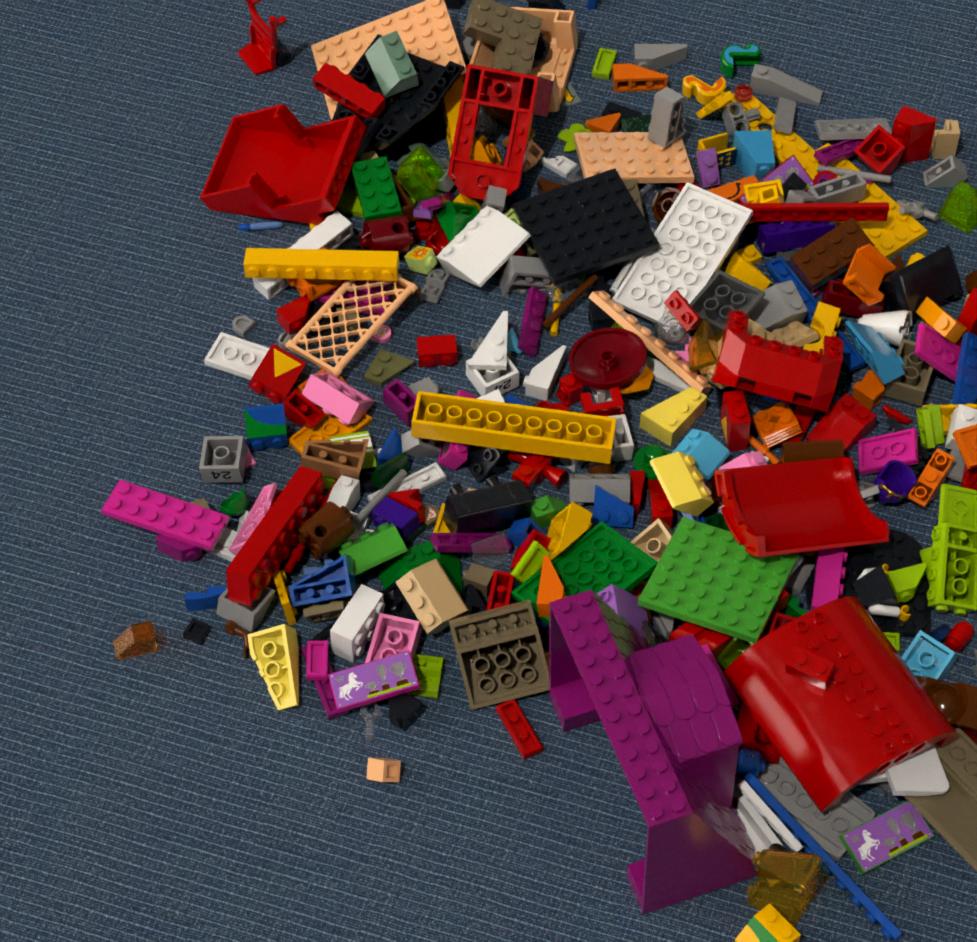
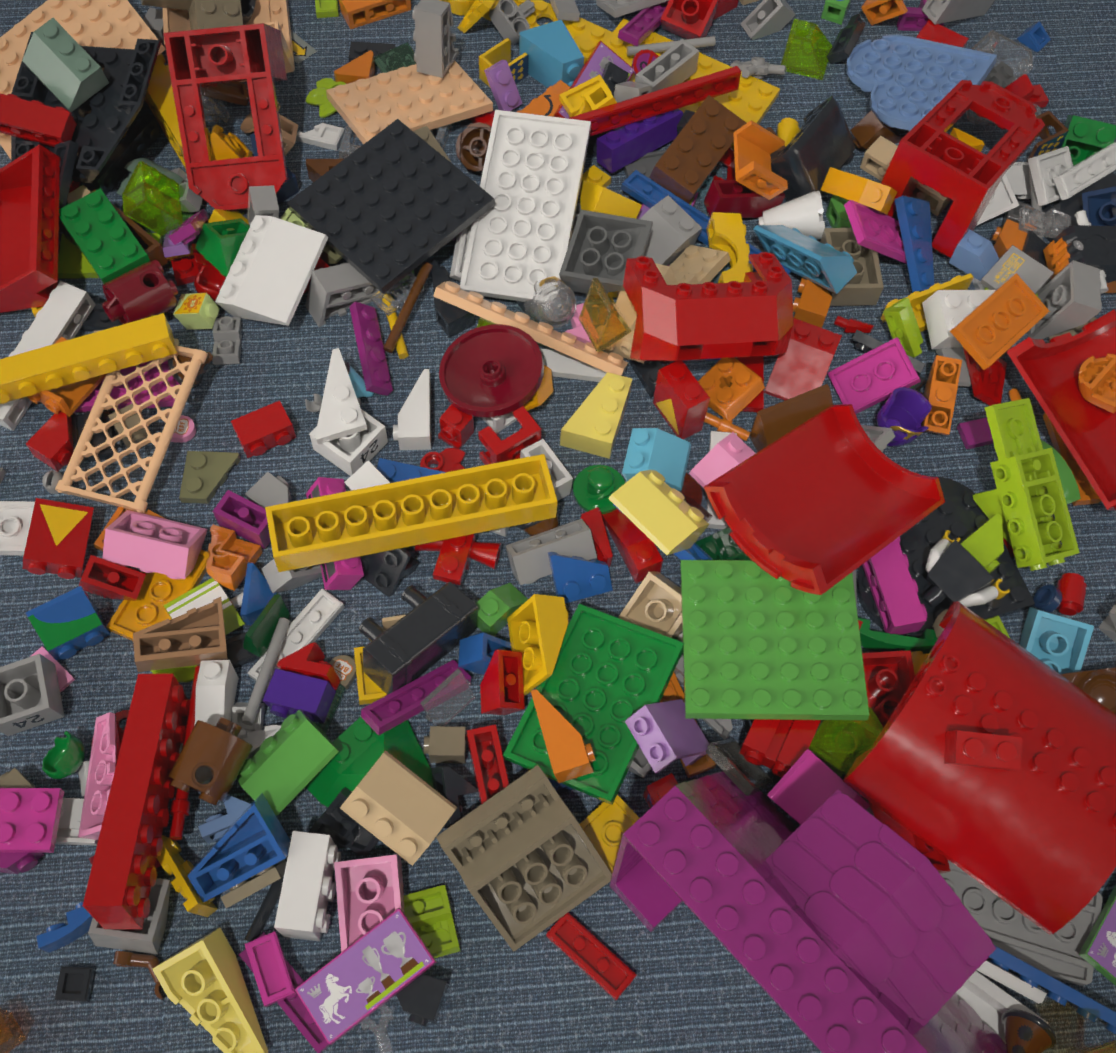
camera: 25 degrees left, 10 degrees up
(382, 422) = (229, 557): none -> orange slope
(530, 562) = (512, 702): lime tile -> none
(683, 311) = (563, 278): red bracket -> none

